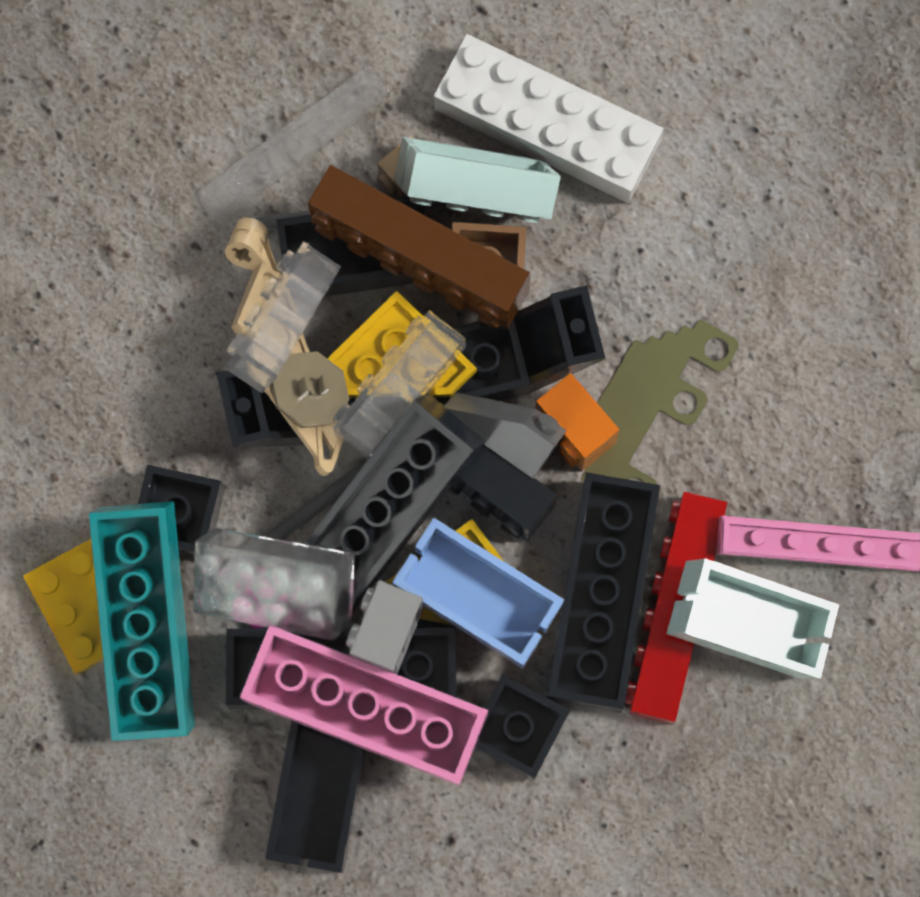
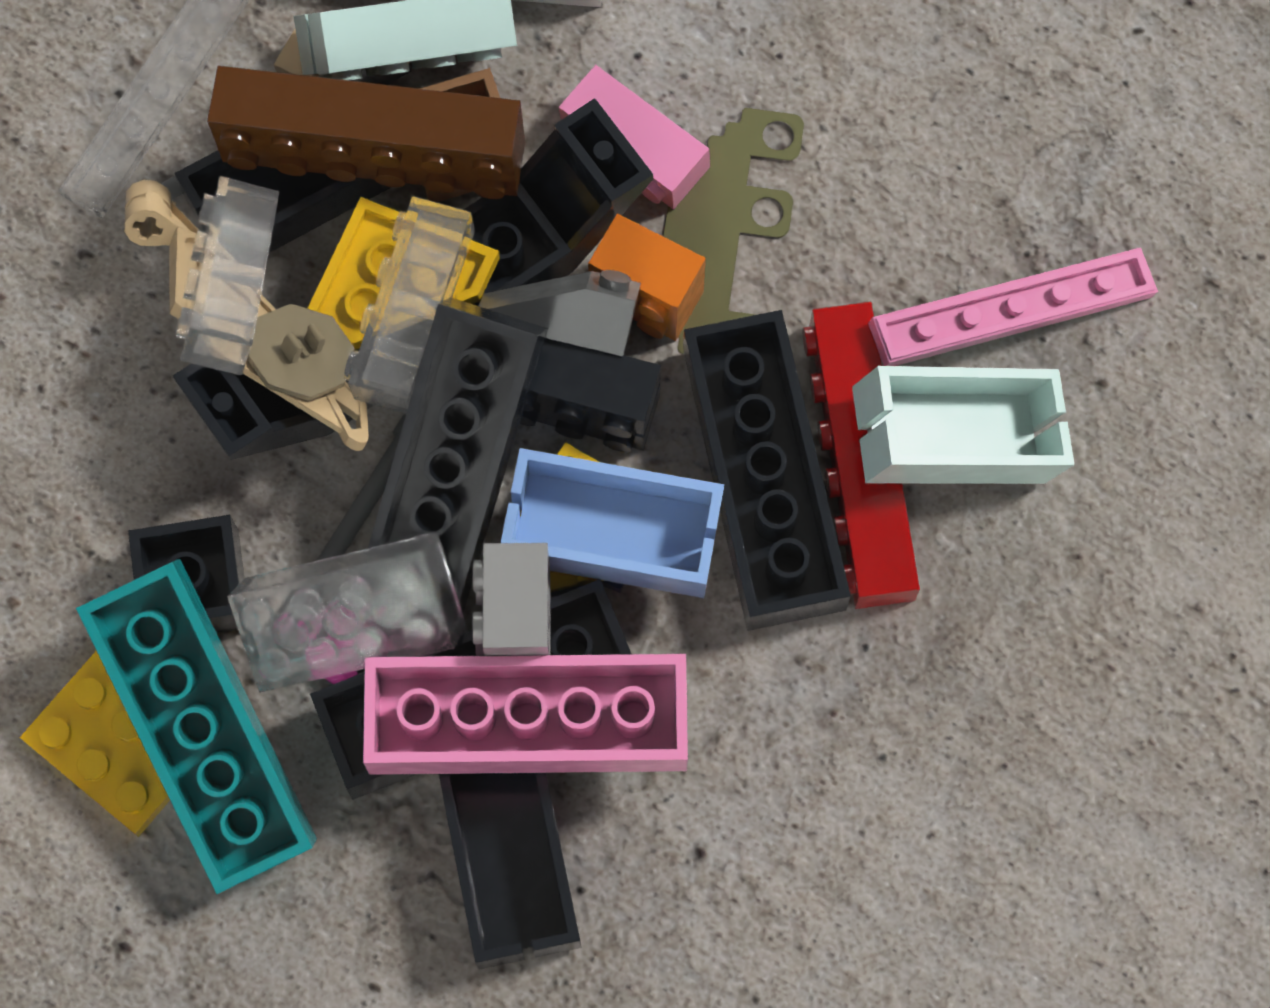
camera: 25 degrees left, 5 degrees down
(520, 727) = (732, 673): black brick -> none
(620, 325) = (666, 148): none -> bright pink brick

